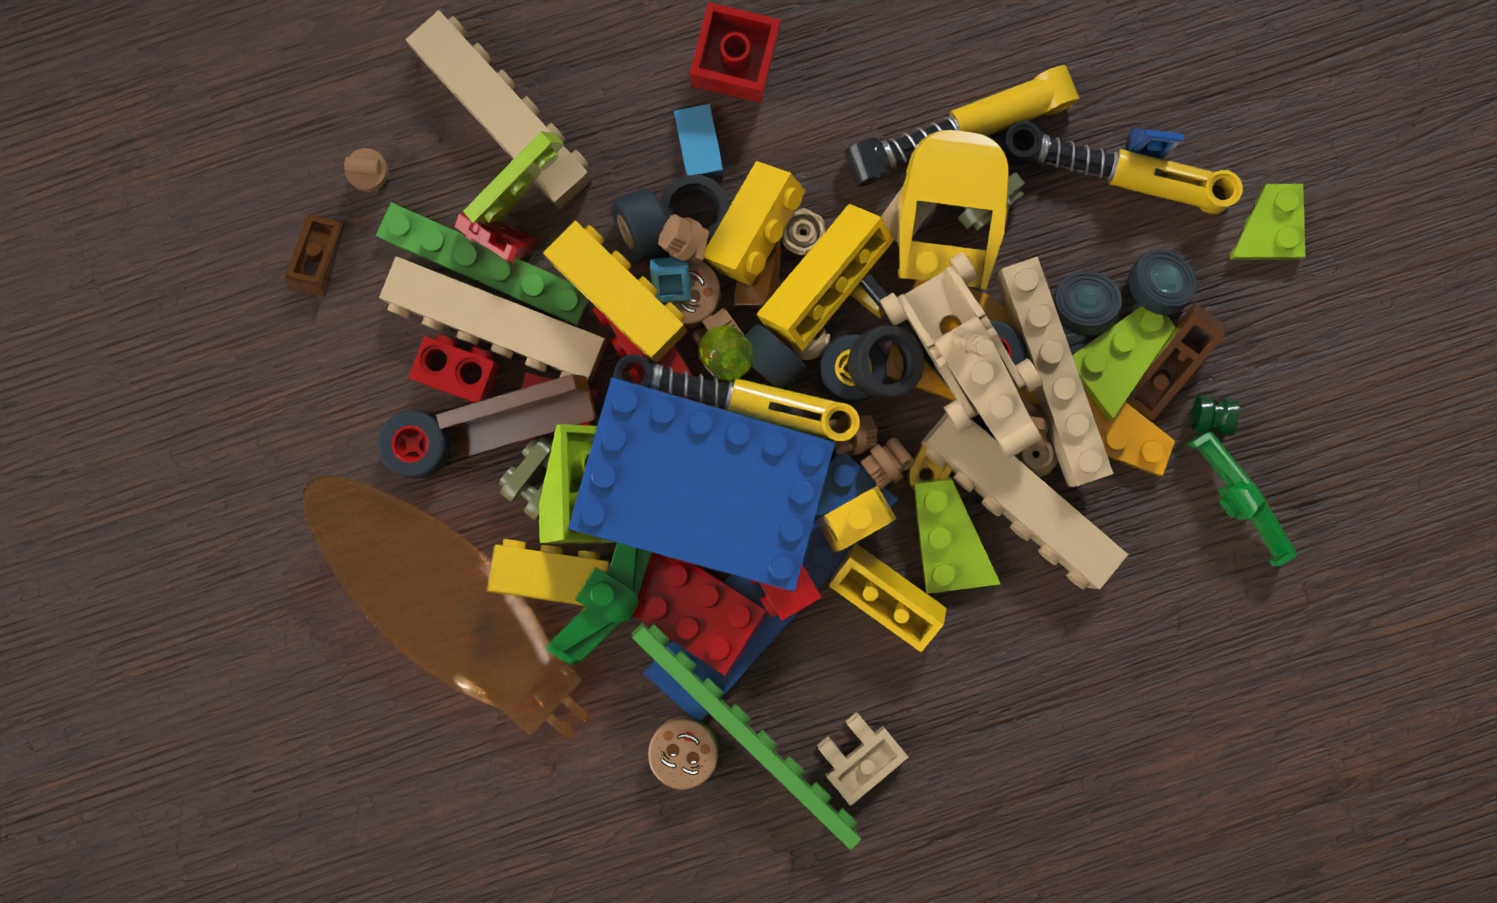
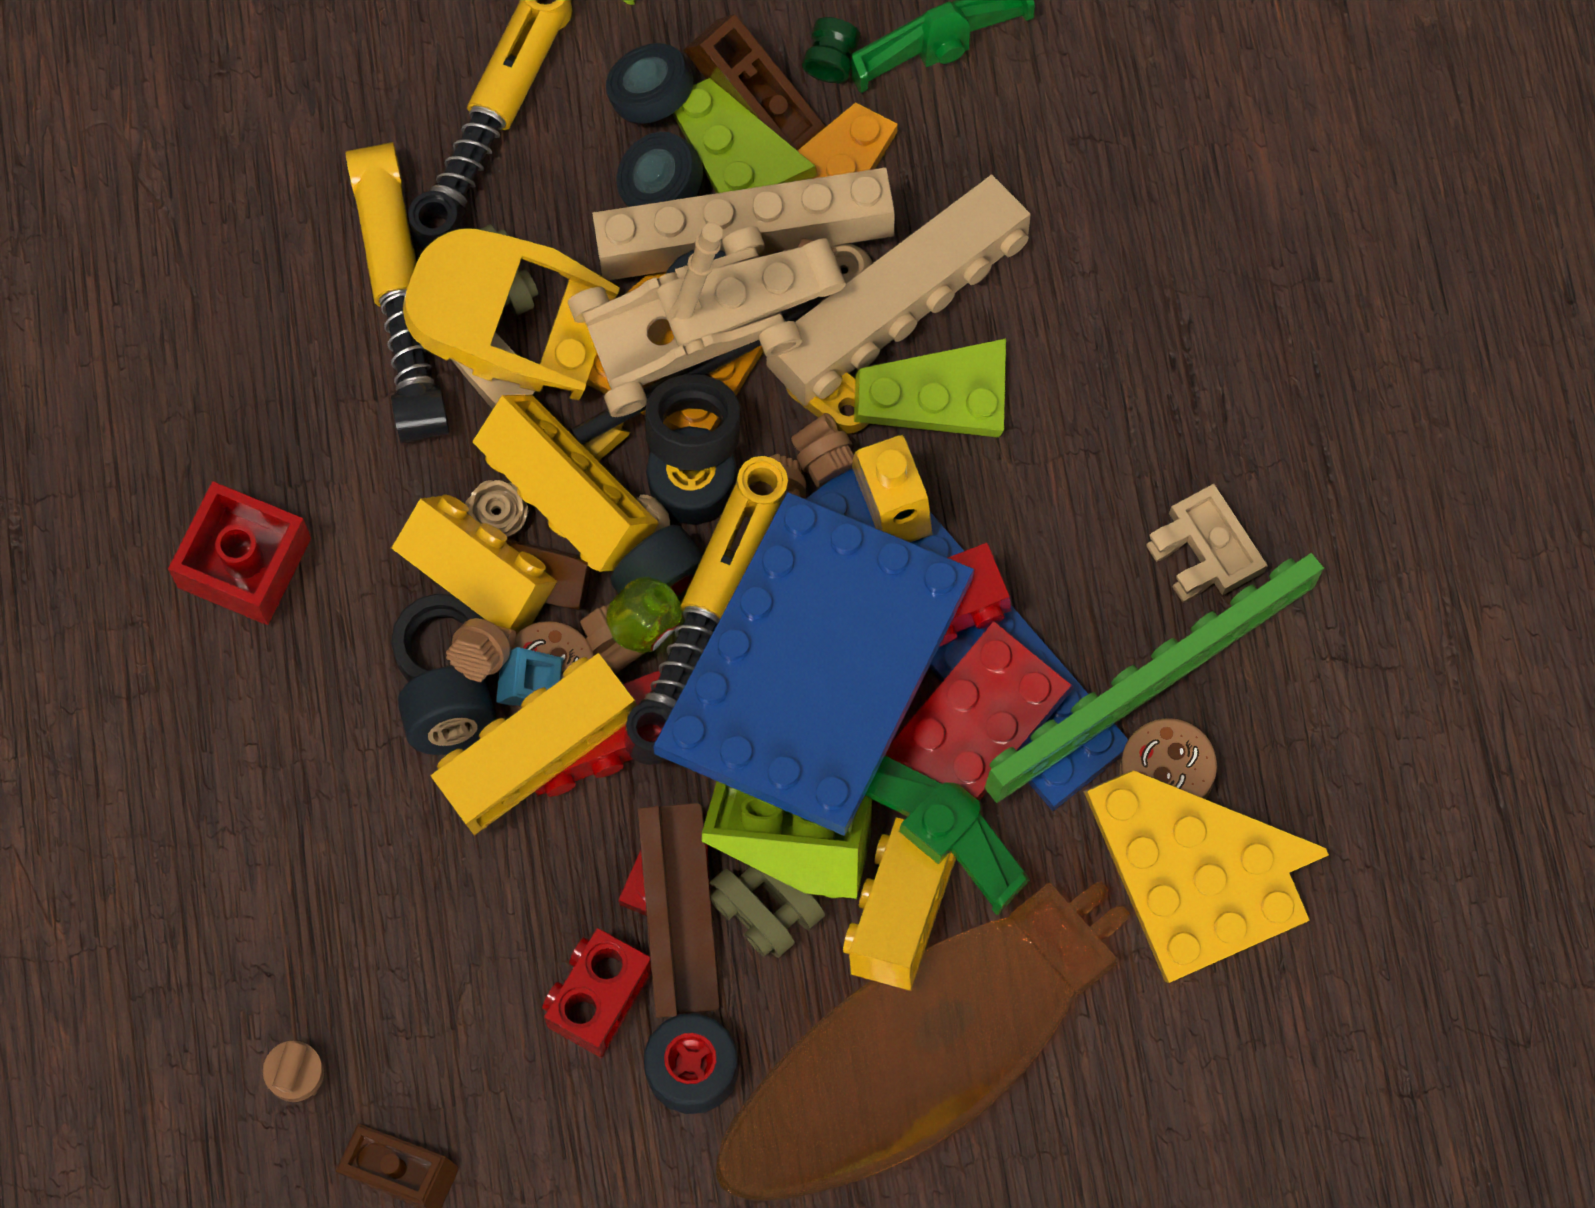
camera: 80 degrees left, 15 degrees down
(482, 265) = (455, 937): bright green plate -> none
(492, 320) = (538, 931): tan brick -> none
(494, 103) = (246, 878): tan brick -> none
(497, 237) = (430, 895): red wing -> none
(512, 183) = (360, 845): lime wing -> none
(607, 787) = (1198, 871): none -> yellow wing
(699, 141) = (346, 626): dark azure slope -> none
(888, 597) = (1001, 472): yellow brick -> none
(1153, 143) = (466, 63): blue slope -> none

